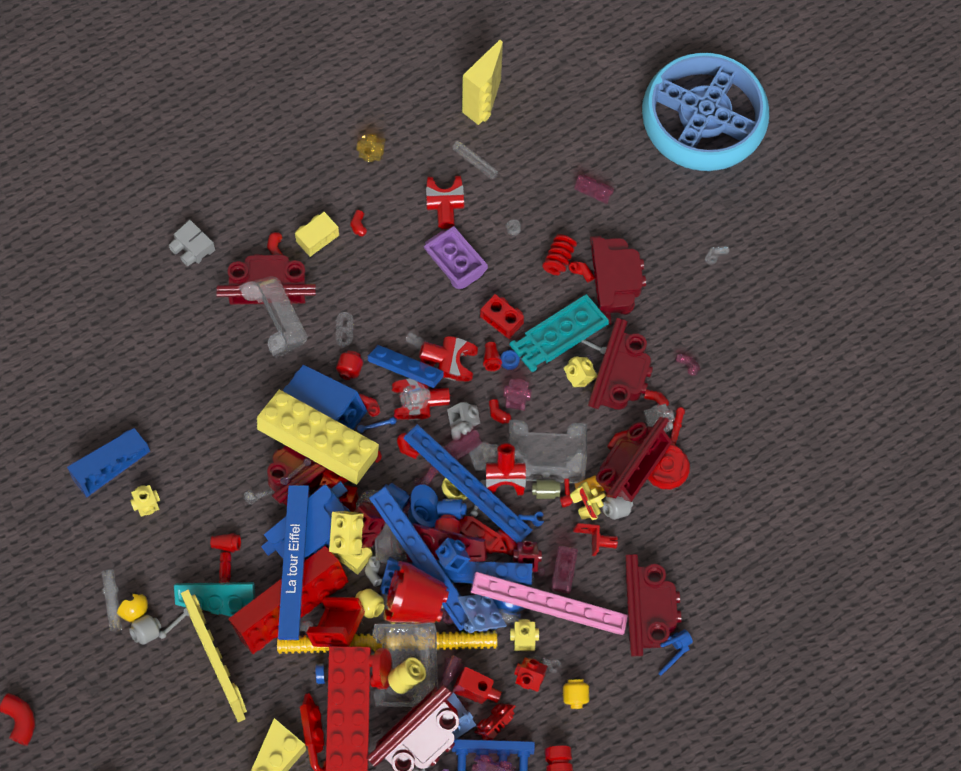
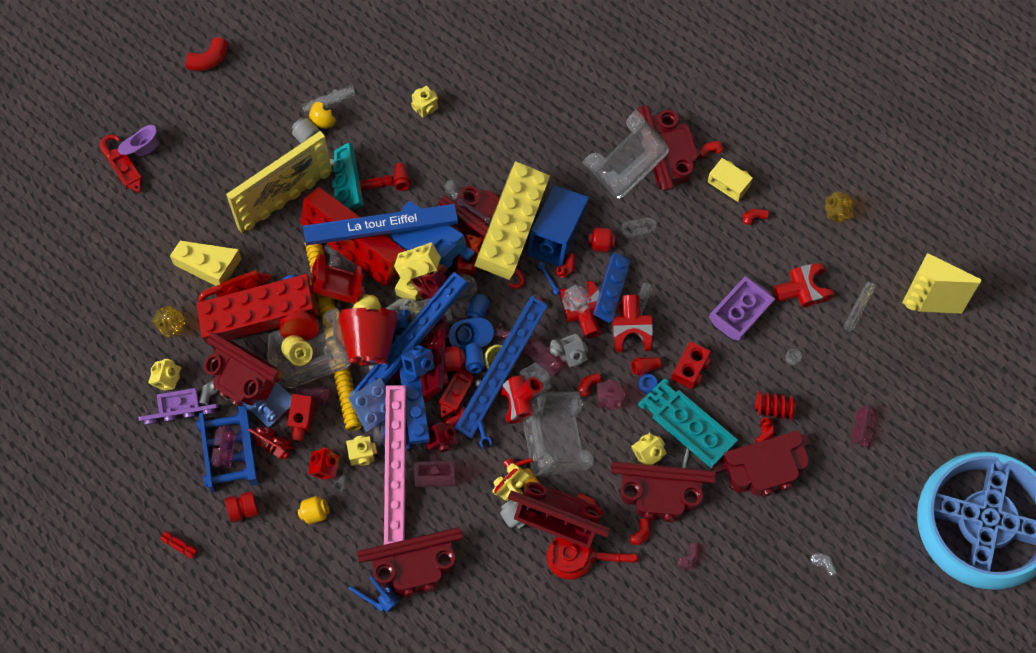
camera: 80 degrees right, 0 degrees up
(108, 461) = (453, 62): blue wedge -> none
(193, 242) = (691, 79): light grey hips -> none
(546, 488) = (517, 443): olive brick -> none
(597, 539) = (474, 503): red bracket -> none
(653, 414) = (618, 536): clear brick -> none

